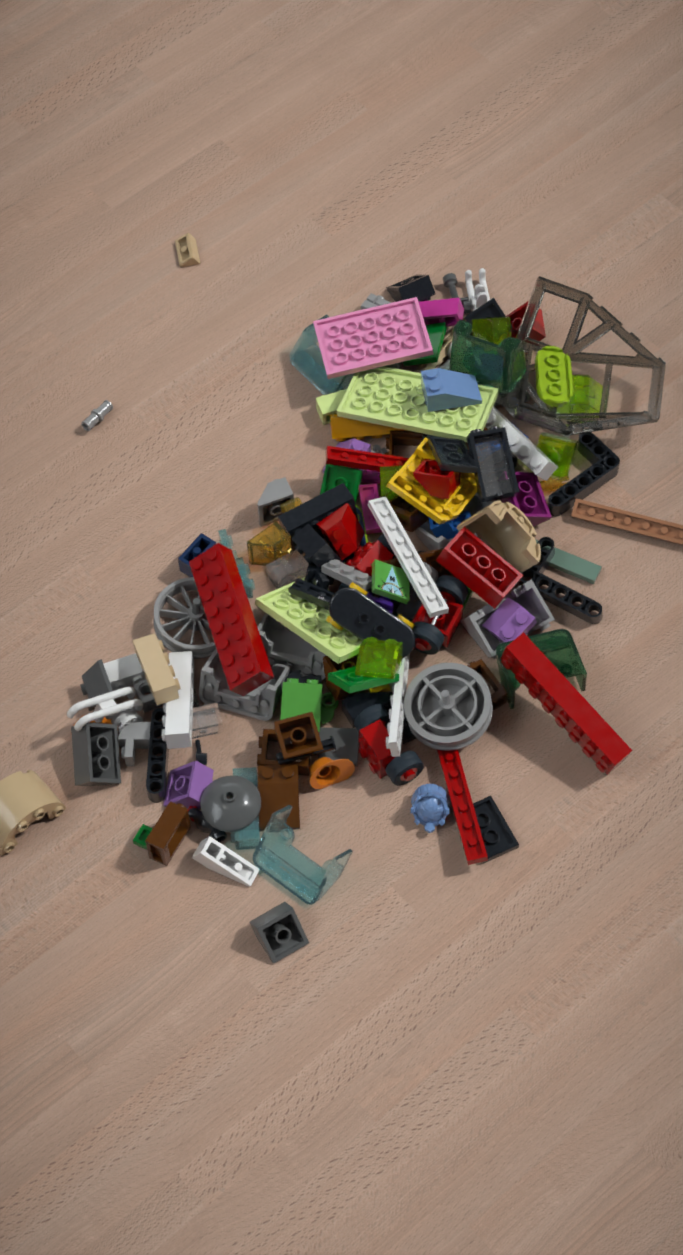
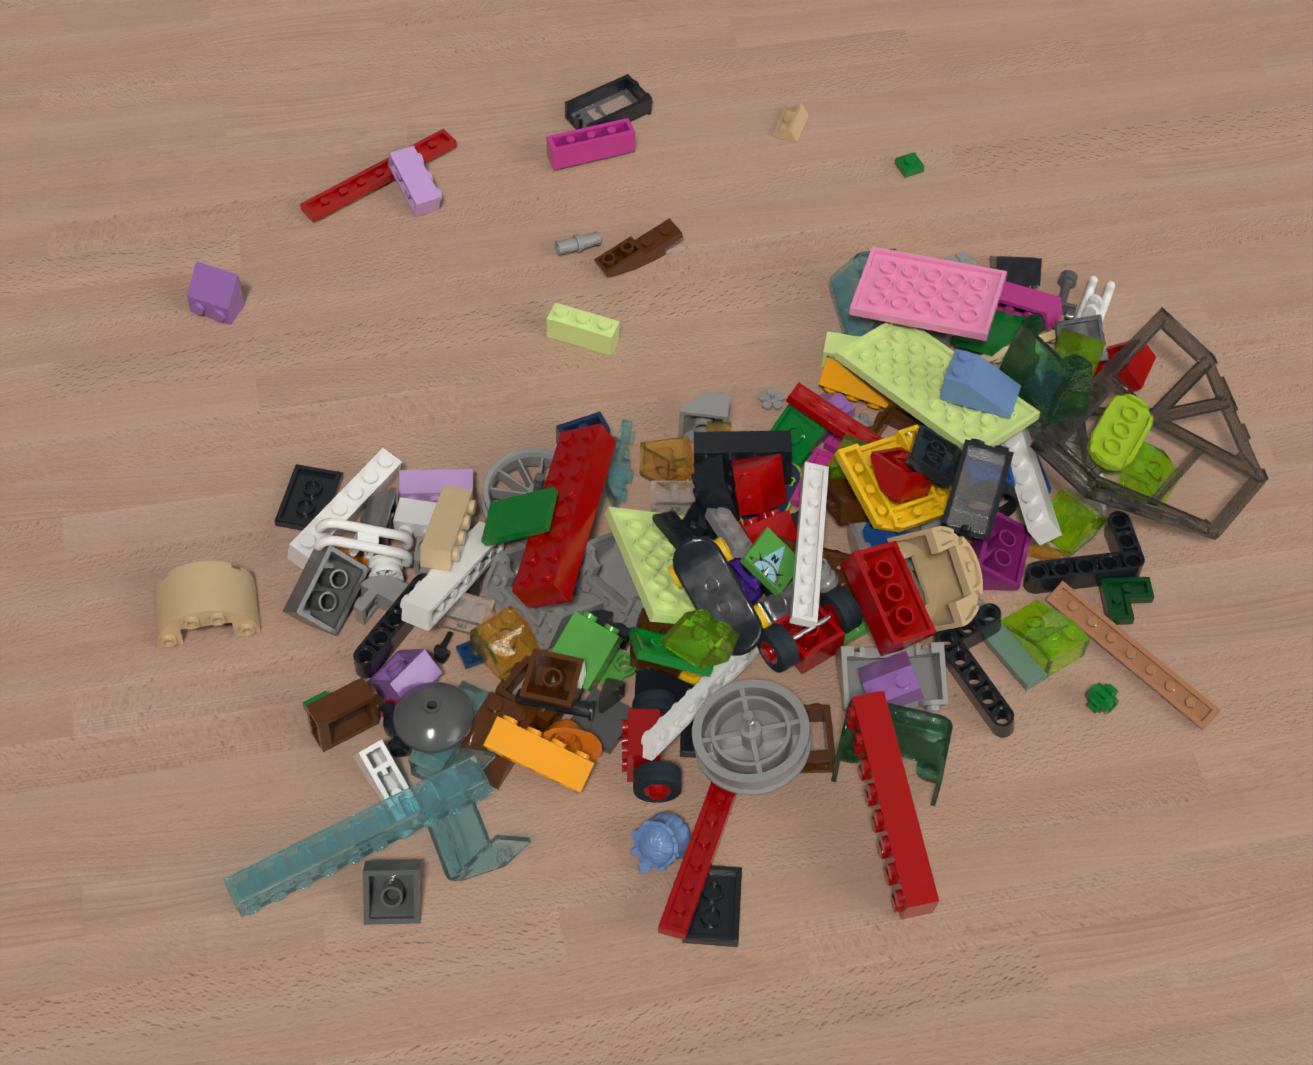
camera: 25 degrees right, 5 degrees down
(34, 697) = (307, 495): none -> black tile
(50, 300) = (609, 103): none -> black door
(58, 335) = (590, 143): none -> dark pink brick
(68, 691) = (347, 504): none -> white brick
(118, 643) = (427, 484): none -> lavender brick
(144, 478) = (583, 329): none -> yellowish green brick
(145, 400) = (639, 252): none -> reddish brown slope
(201, 636) = (519, 516): none -> green tile
(221, 746) = (467, 657): none -> tile
(236, 908) = (357, 836): none -> clear light blue brick
(241, 728) = (503, 641): none -> clear yellow slope
(290, 244) = (909, 165): none -> green plate
(305, 465) = (771, 399): none -> light grey plant
(317, 791) = (538, 754): none -> light orange brick
(335, 725) = (611, 693): none -> clear smoke slope
(586, 539) = (1047, 636): none -> clear neon green slope
(615, 489) = (1120, 593): none -> dark green plate
(646, 564) = (1102, 698): none -> green gear

